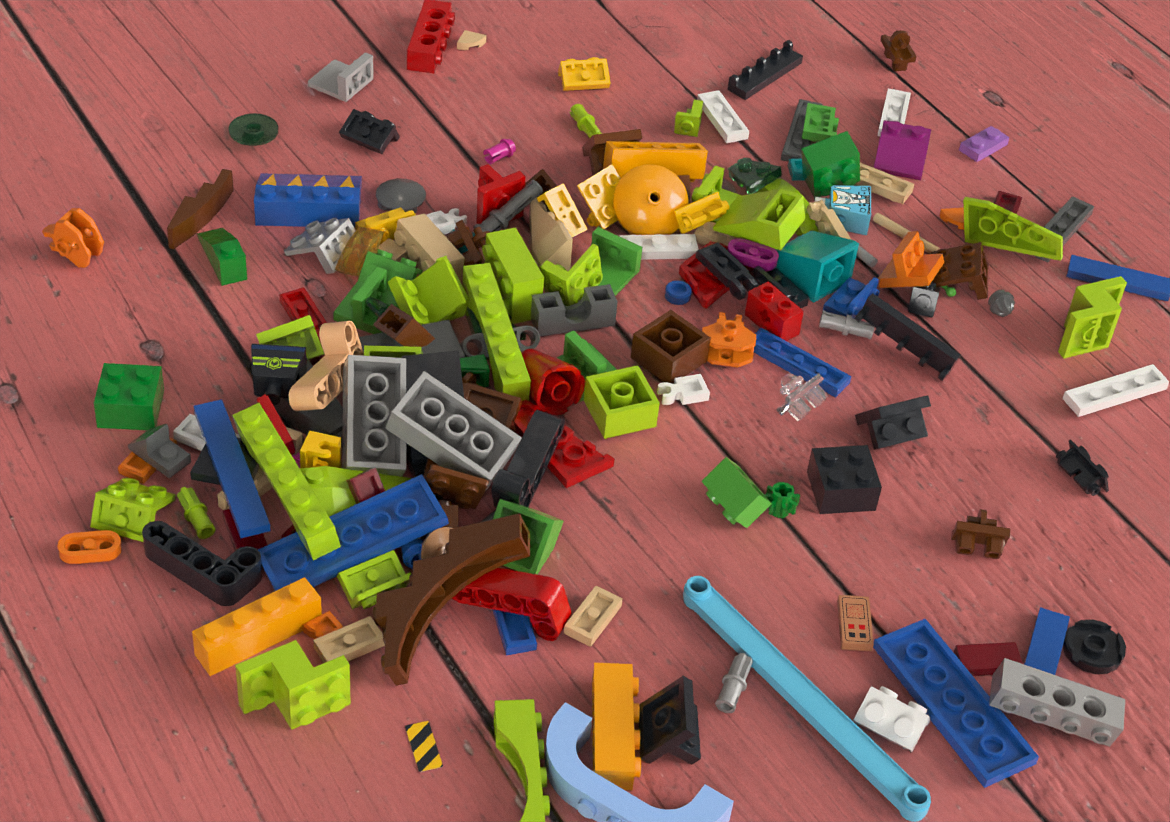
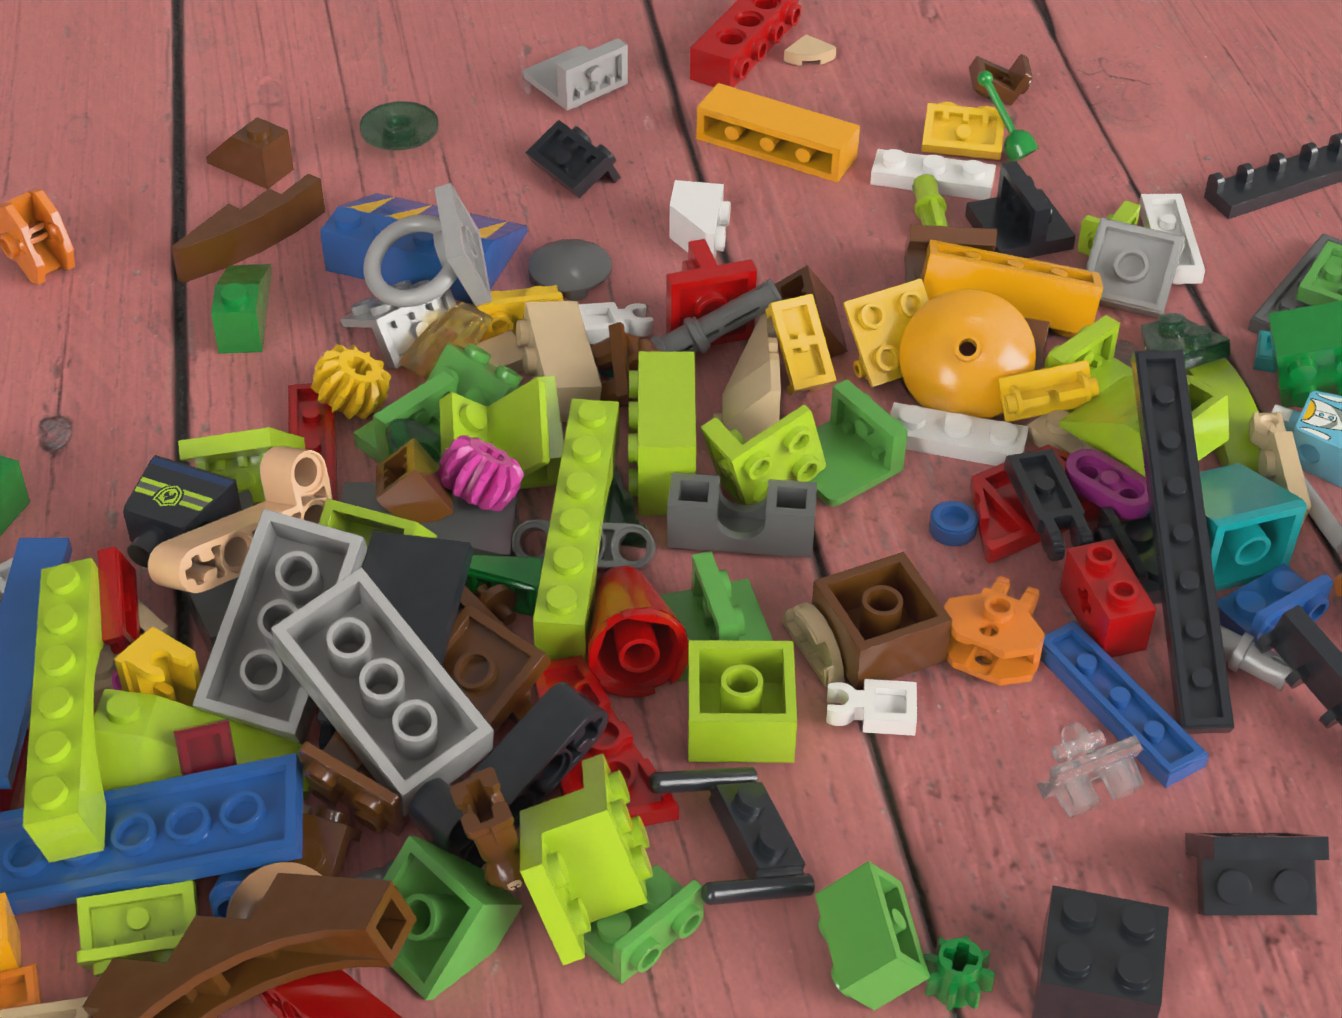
camera: 25 degrees right, 0 degrees up
(173, 162) = (255, 153): none -> reddish brown slope
(319, 284) = (351, 381): none -> yellow gear
(352, 194) = (457, 247): none -> light grey tile
(435, 315) = (480, 473): none -> dark pink gear
(462, 154) = (699, 214): none -> white slope
(479, 93) = (777, 132): none -> light orange brick
(504, 148) = (764, 226): dark pink pin -> none
(546, 483) = (491, 827): none -> reddish brown animal
(561, 103) = (954, 177): none -> white plate
(589, 488) = (584, 857): none -> lime bracket
(590, 41) = (1007, 83): none -> reddish brown bracket
(618, 76) = (1018, 142): none -> green hinge
(621, 517) = (638, 936): none -> bright green bracket
(632, 357) = (815, 641): none -> tan tile
(638, 114) = (1022, 215): none -> black bracket
(654, 461) = (753, 830): none -> black plate
(715, 133) = (1135, 266): none -> light grey tile
(804, 273) = (1181, 543): none -> black tile

